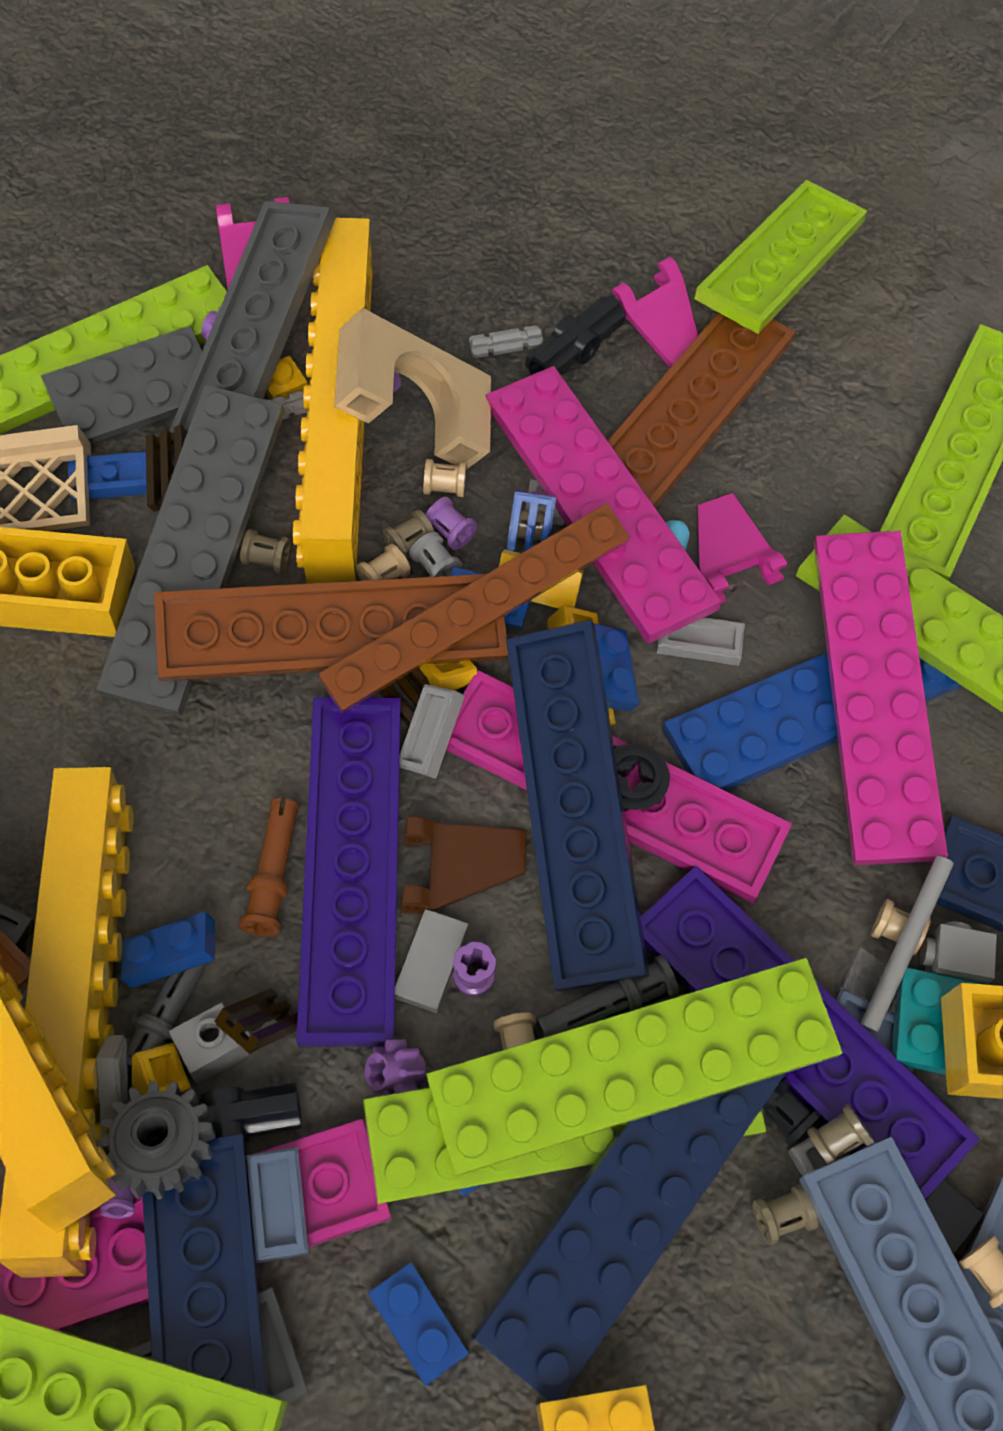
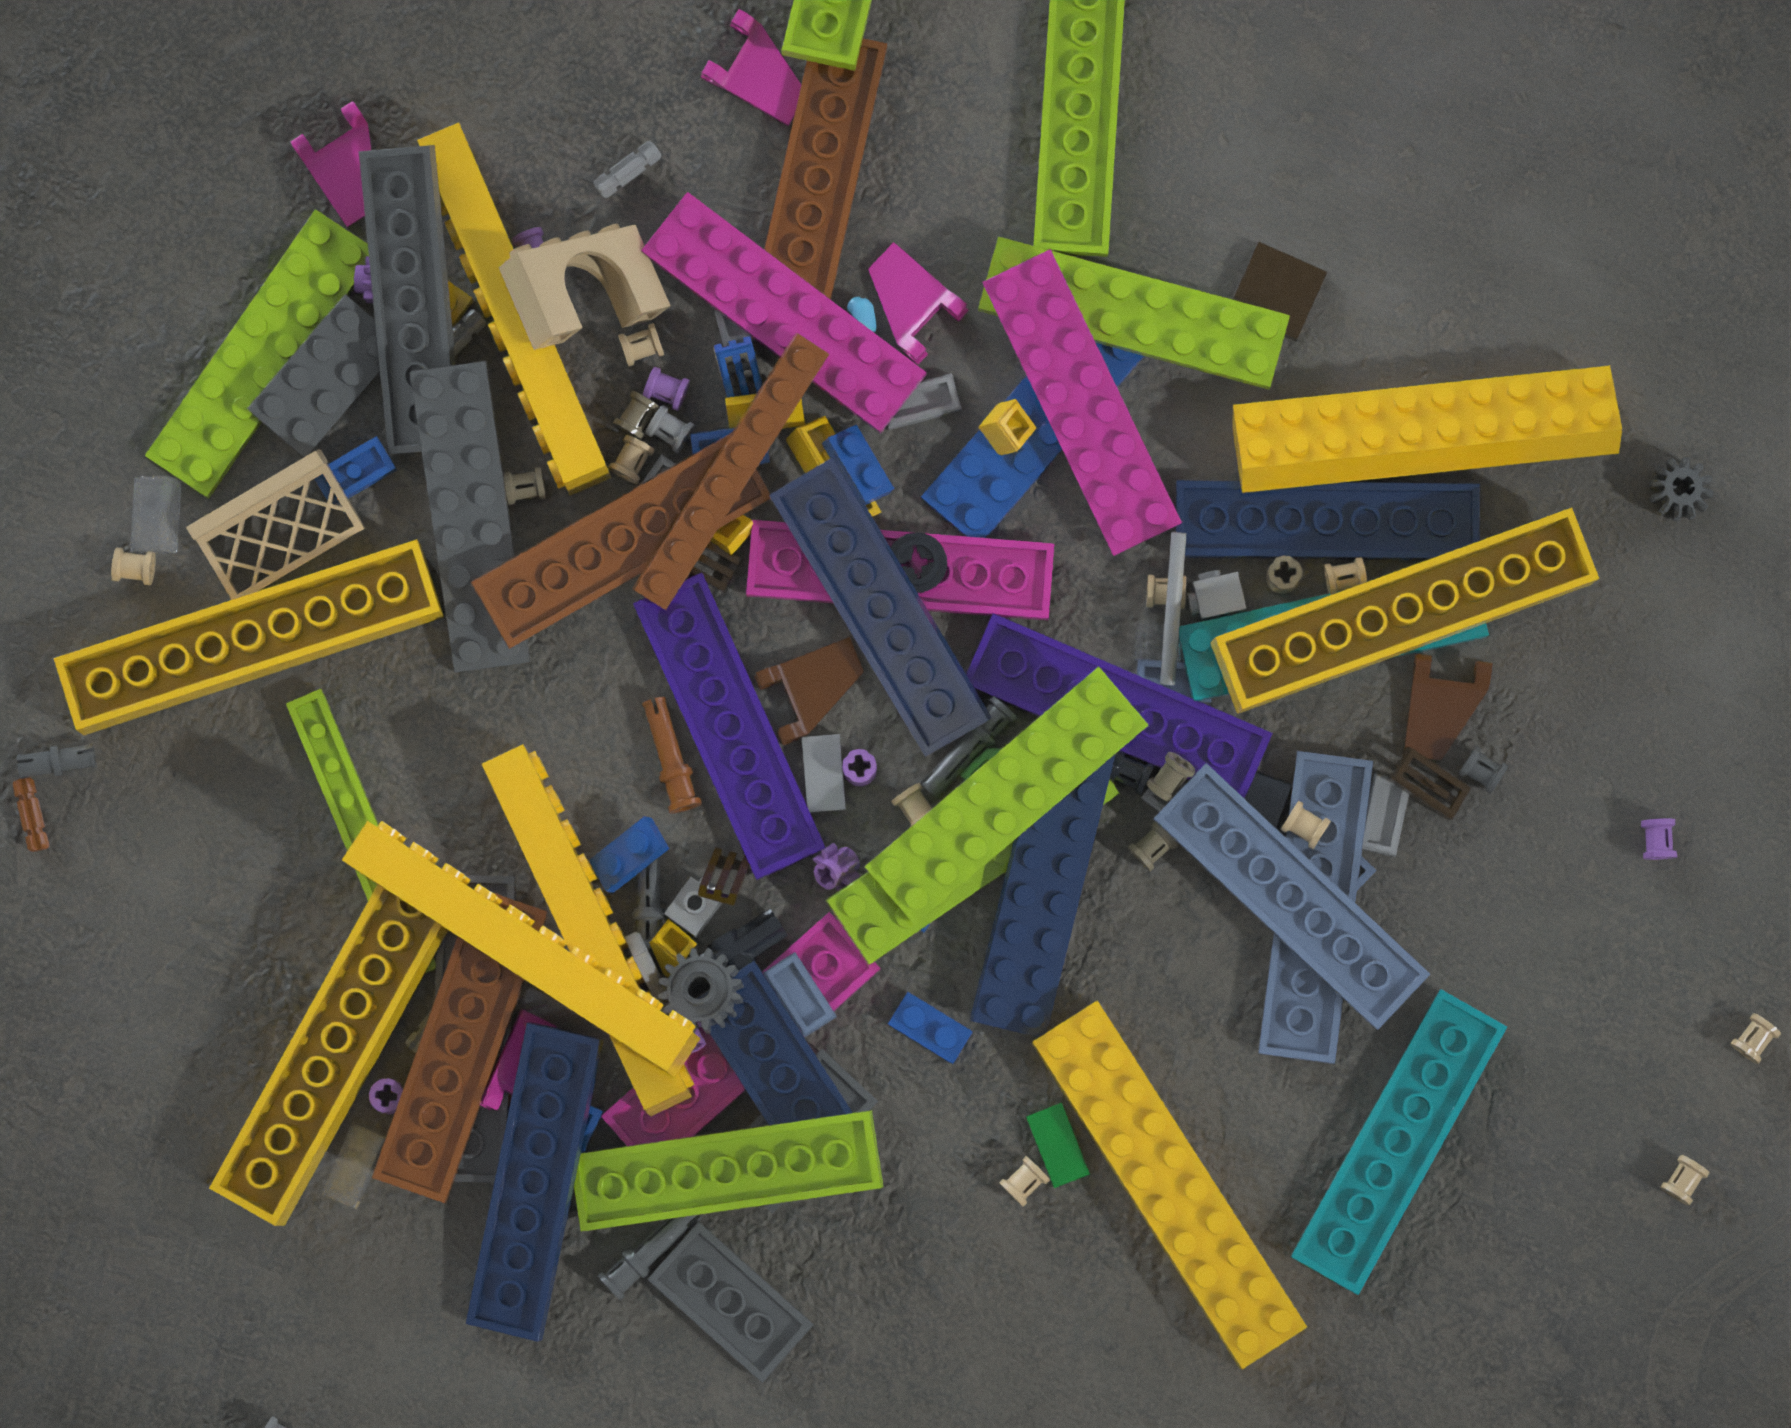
camera: 15 degrees left, 20 degrees up
(159, 463) = (392, 453): dark brown tile -> none
(430, 730) = (740, 592): light grey tile -> none
(577, 337) = (690, 141): black piece -> none
(786, 687) = (1007, 427): none -> yellow slope

